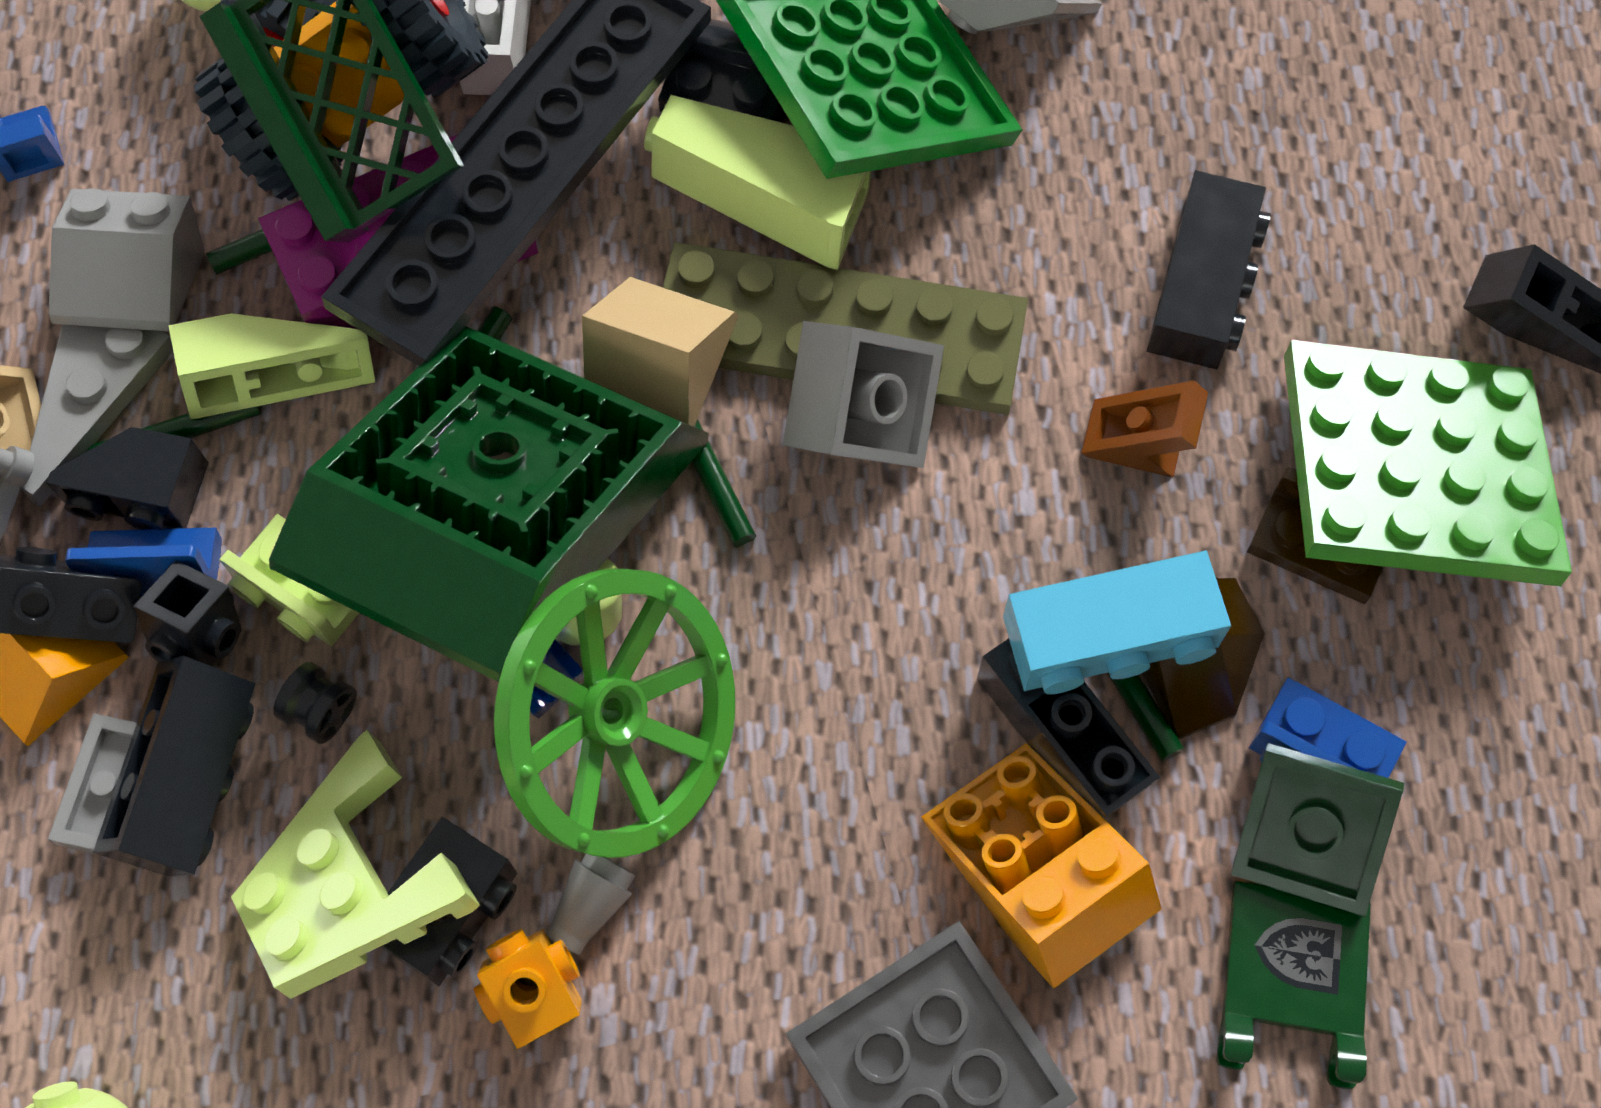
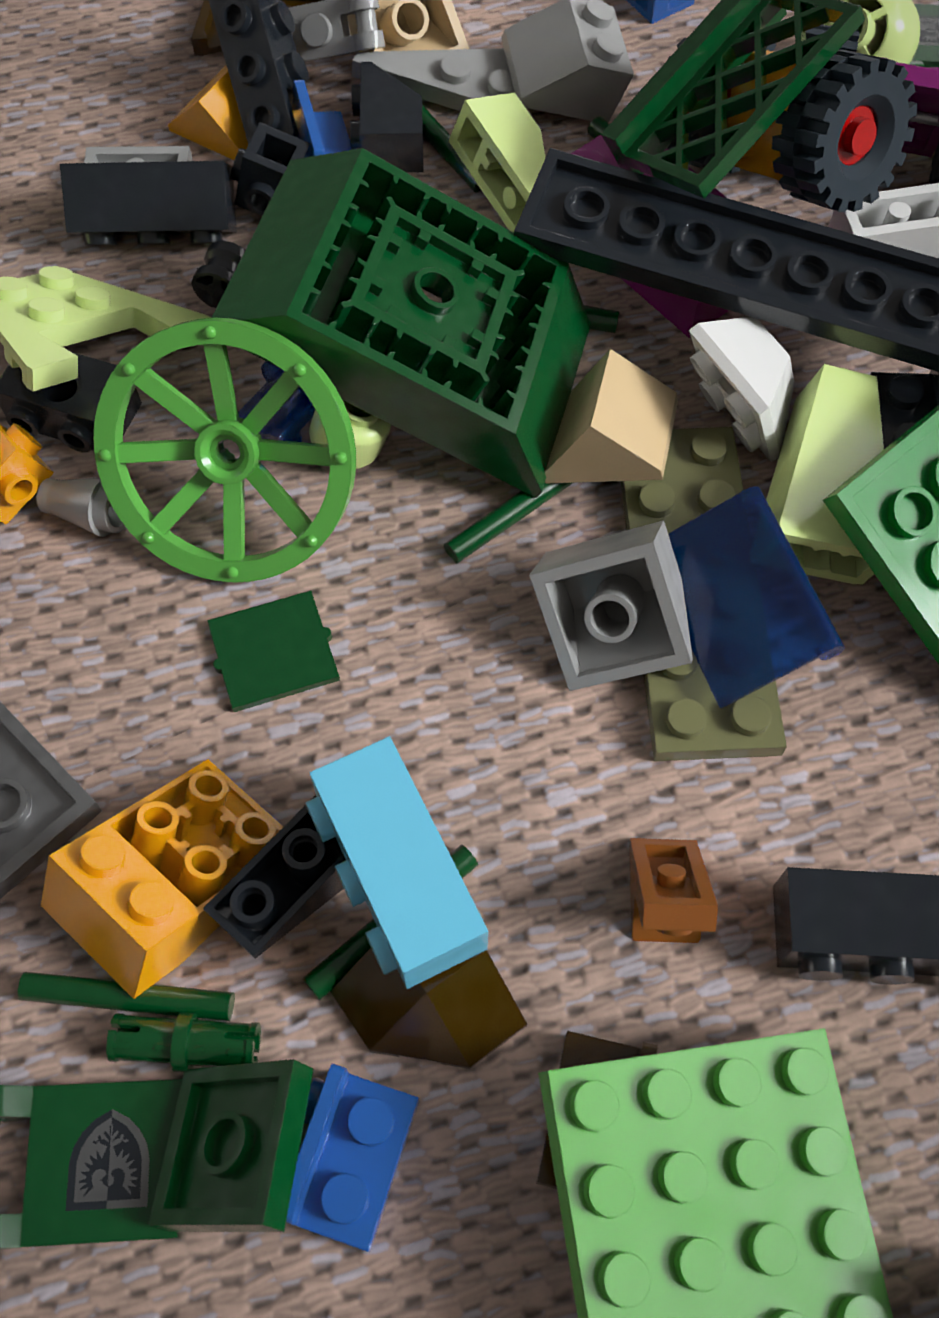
camera: 75 degrees right, 5 degrees down
(643, 203) = (748, 376): none -> white slope
(813, 735) = (273, 651): none -> dark green piece
(892, 276) = (748, 598): none -> clear blue piece
(1148, 935) = (110, 995): none -> dark green bar
(1205, 871) = (182, 1041): none -> dark green pin

